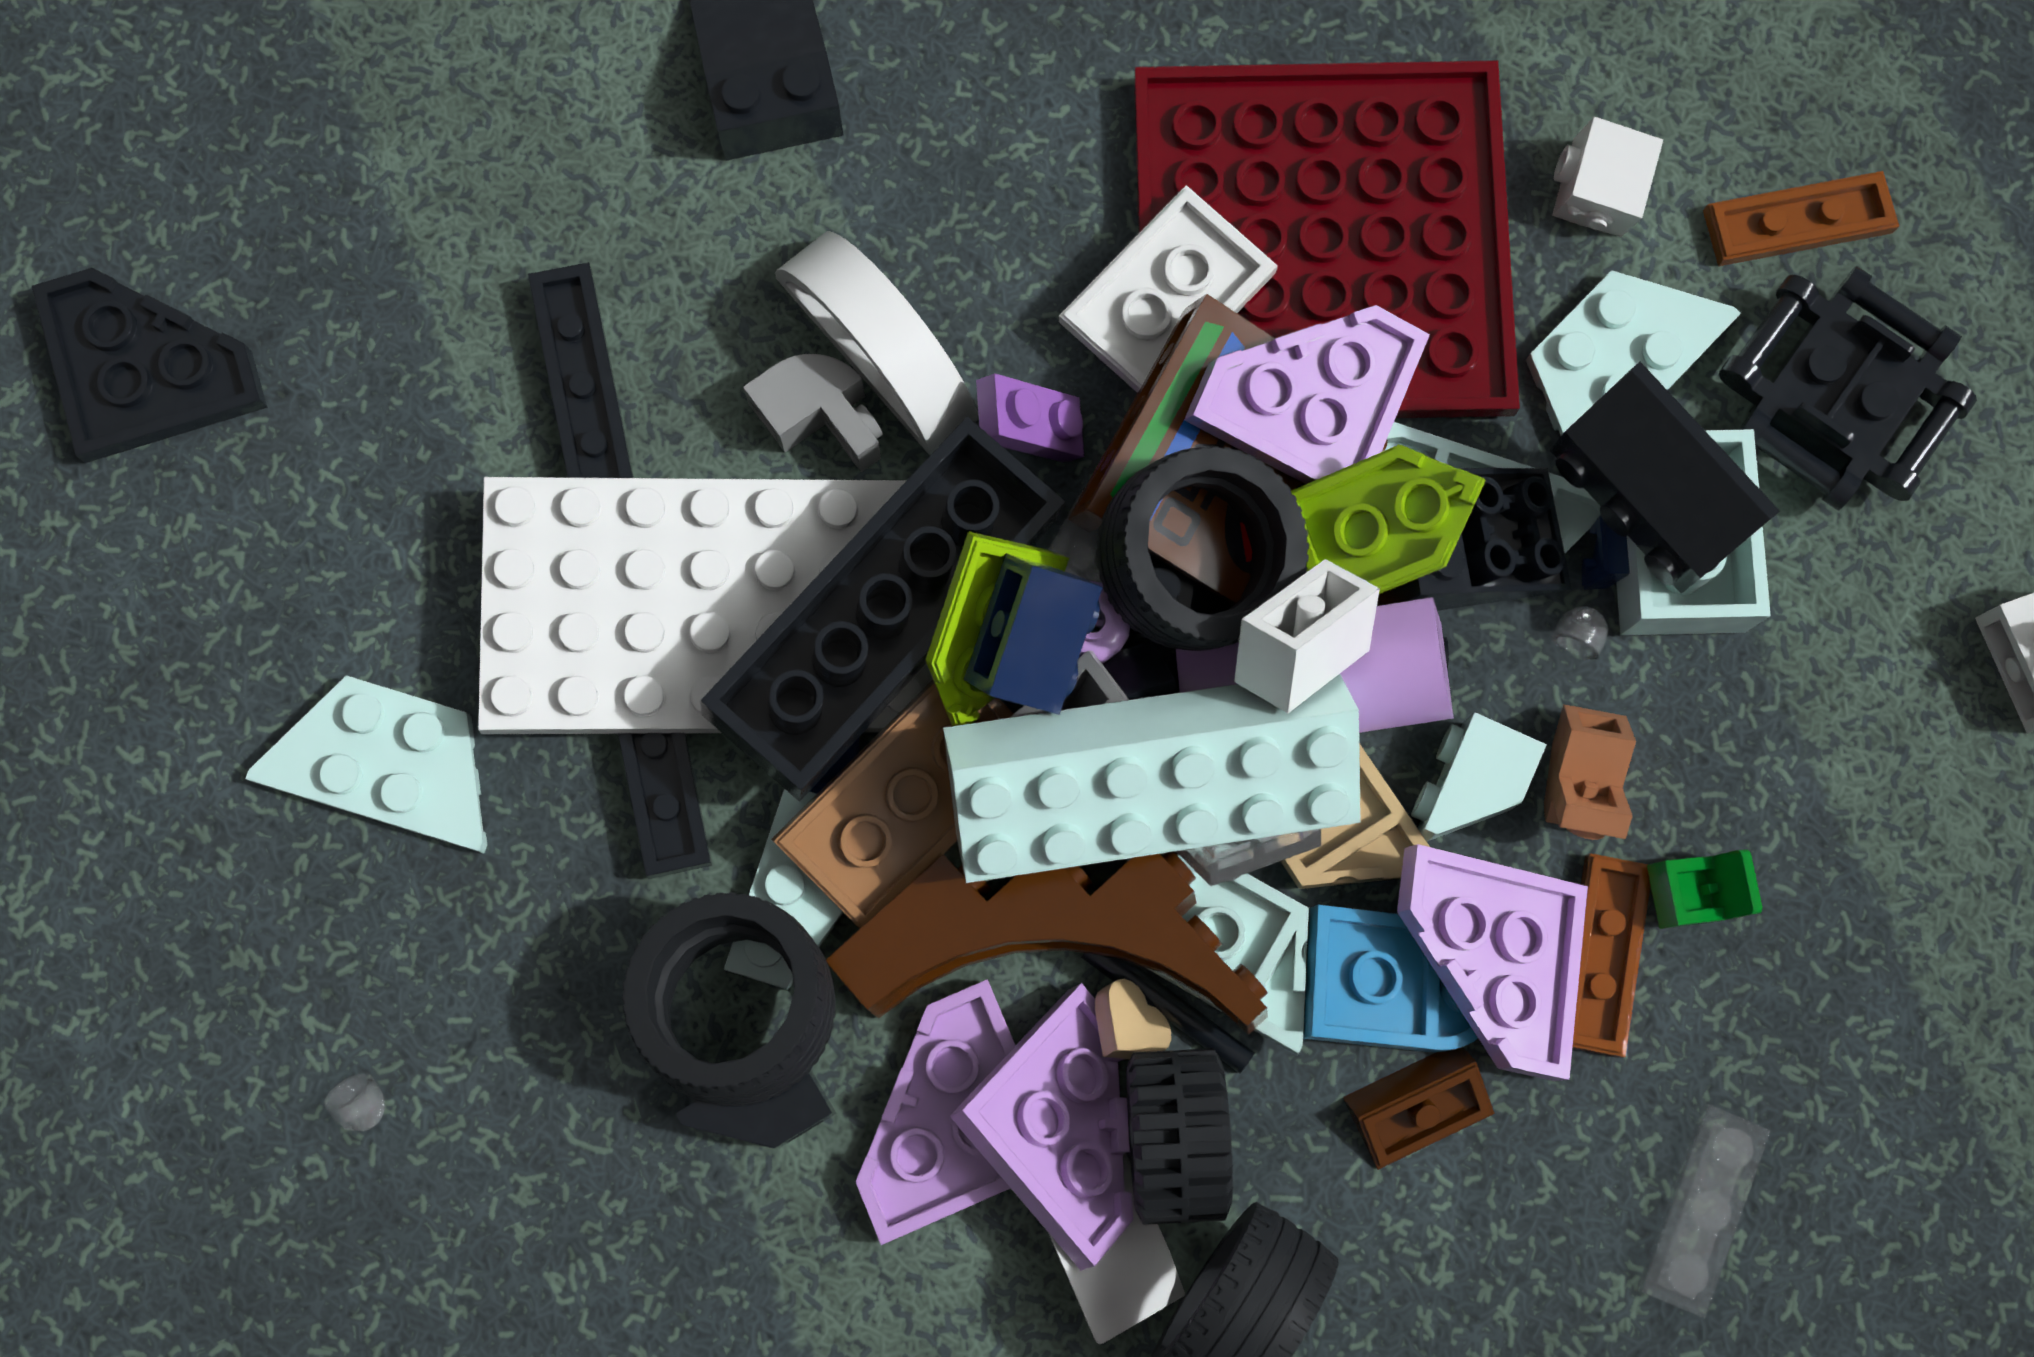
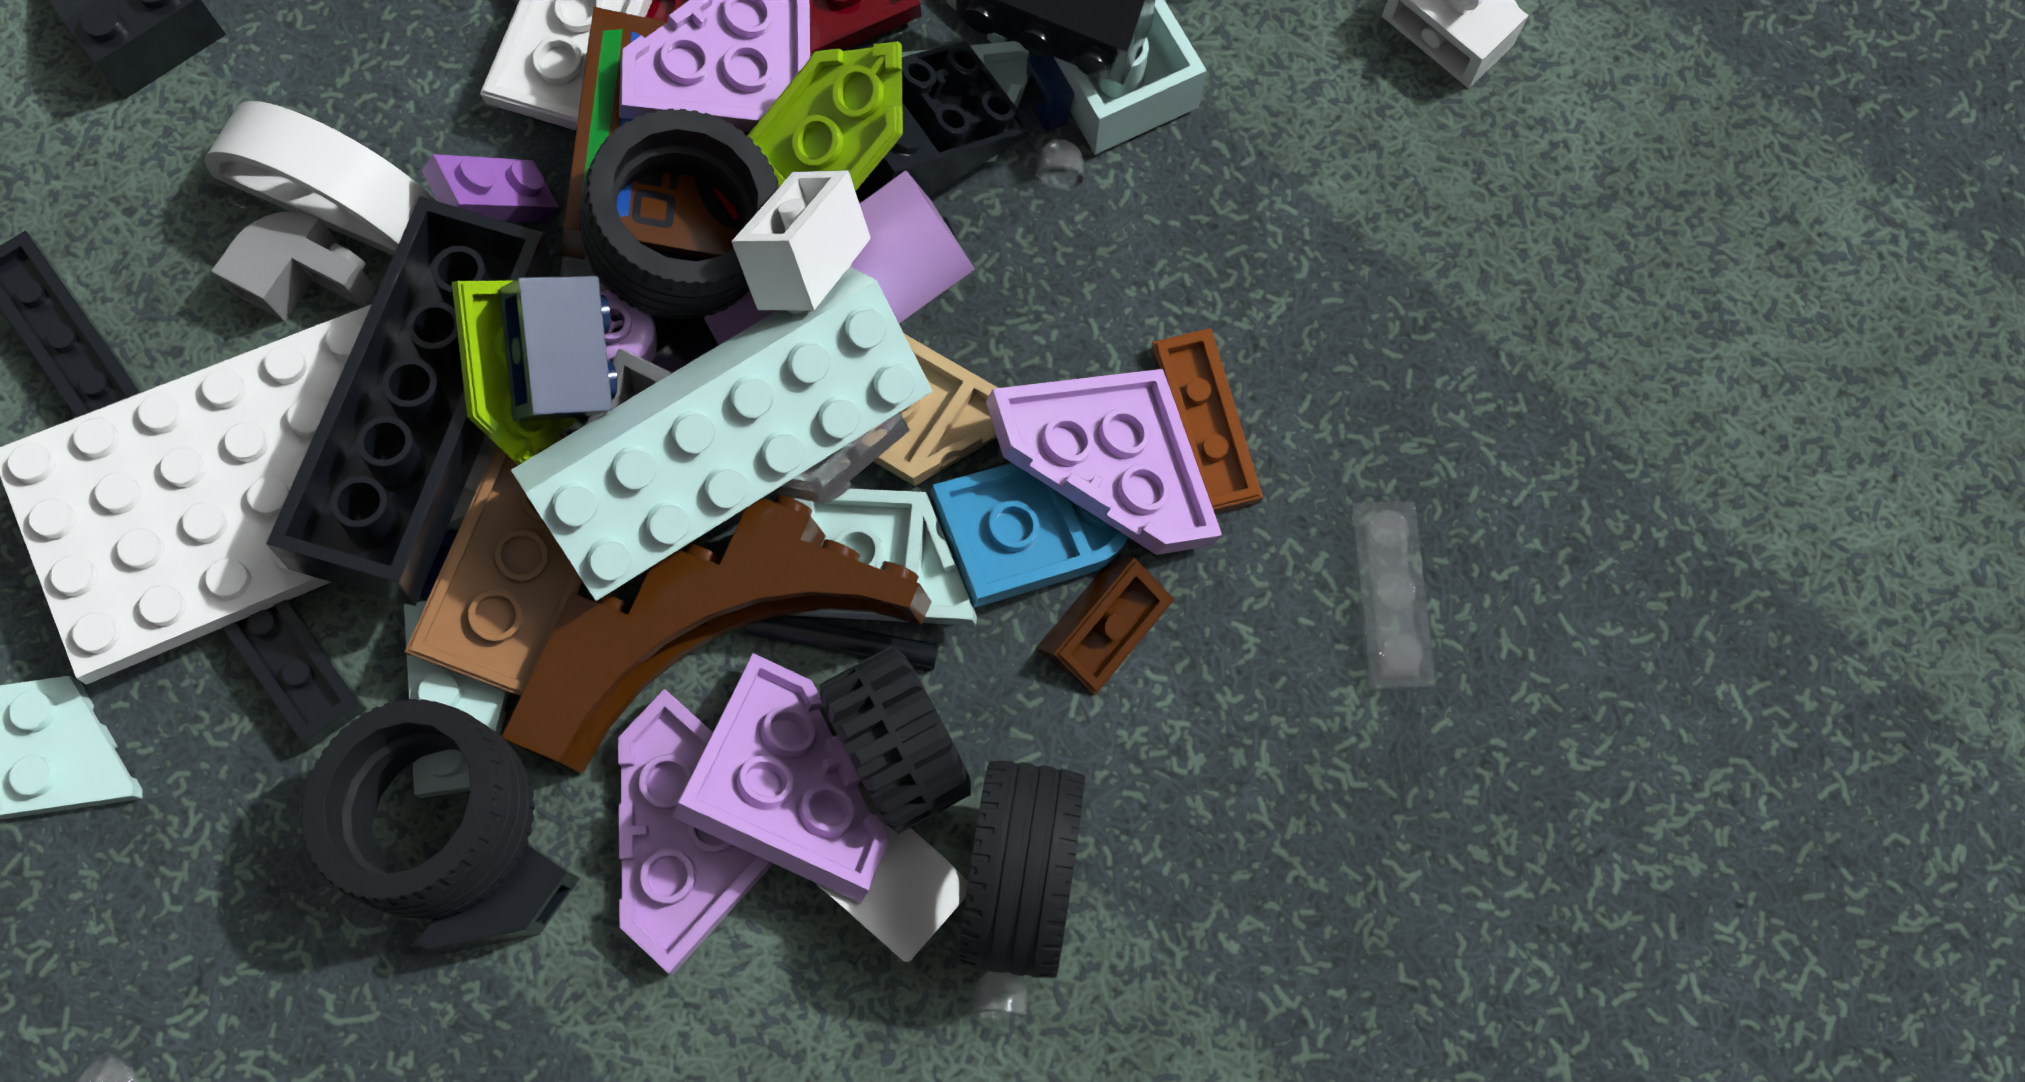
camera: 25 degrees left, 5 degrees down
(1128, 1022) = (806, 664): tan tile -> none
(1482, 776) = (1029, 316): light aqua slope -> none
(1589, 773) = (1119, 273): nougat brick -> none
(1704, 889) = (1262, 326): green bracket -> none

